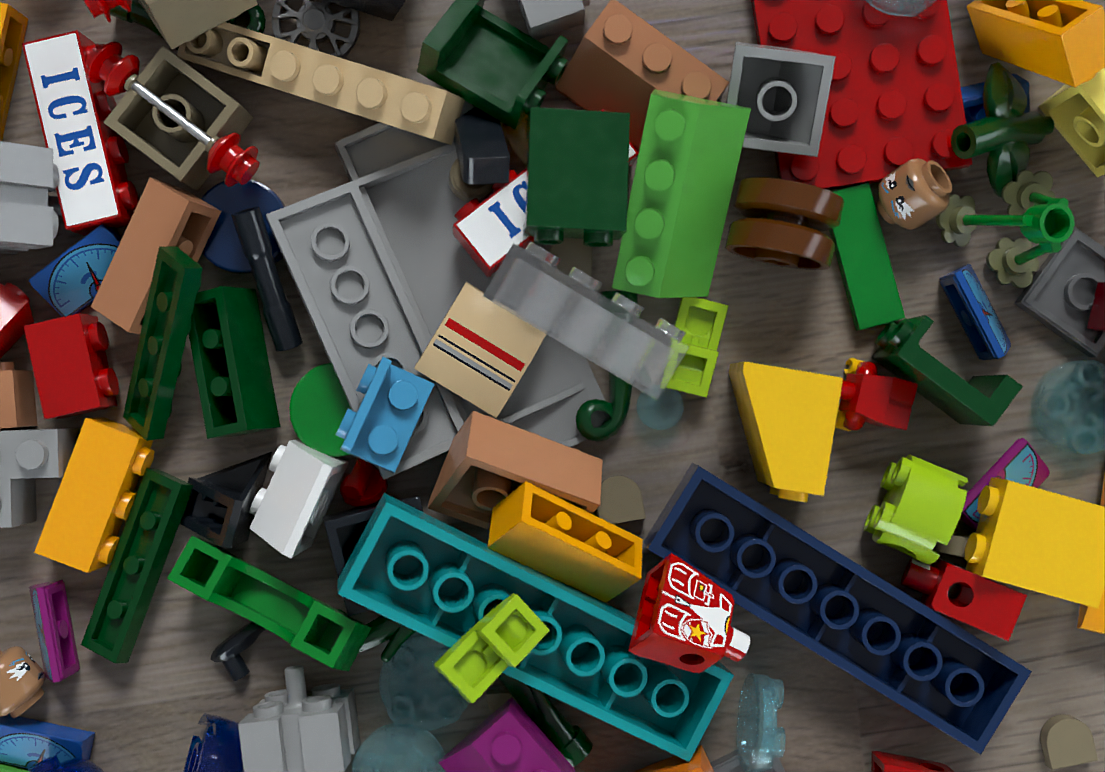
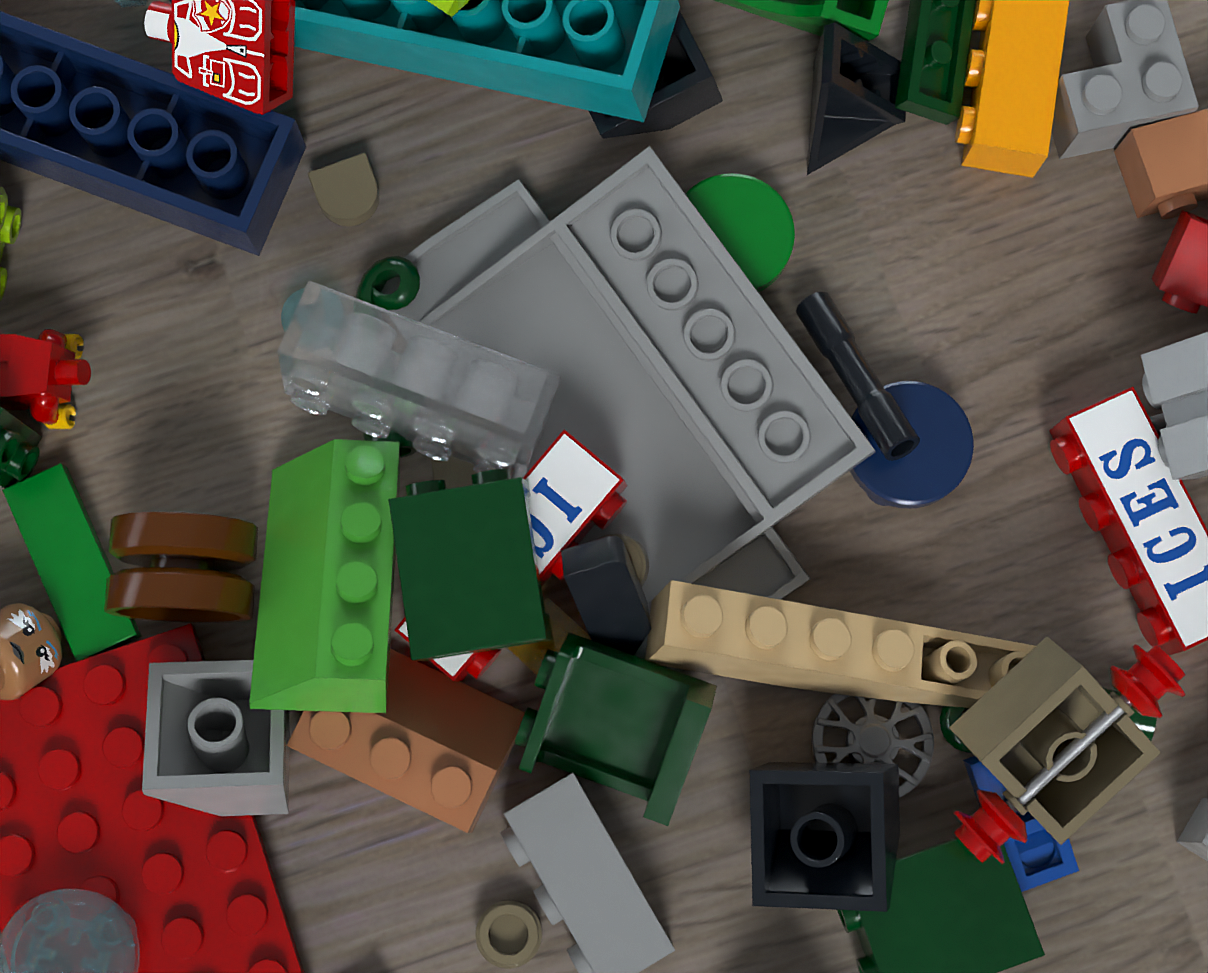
camera: 165 degrees right, 10 degrees down
(71, 366) = (1084, 223): red brick -> none
(76, 275) = (1097, 348): slope -> none
(161, 218) = (1008, 373): nougat brick -> none
(162, 342) = (971, 264): dark green plate -> none
(175, 115) = (1024, 560): dark tan brick -> none
(232, 363) = (879, 260): dark green brick -> none
(296, 498) = (760, 108): white slope -> none
(363, 485) = (680, 147): red plate -> none
(385, 416) = (663, 221): dark azure bracket -> none
(480, 351) = (566, 326): tan slope -> none
(495, 458) = (477, 179): nougat slope -> none
(565, 542) = (401, 109): light orange brick -> none
(703, 328) = (275, 426): lime slope -> none
(787, 425) = (134, 313): yellow slope -> none

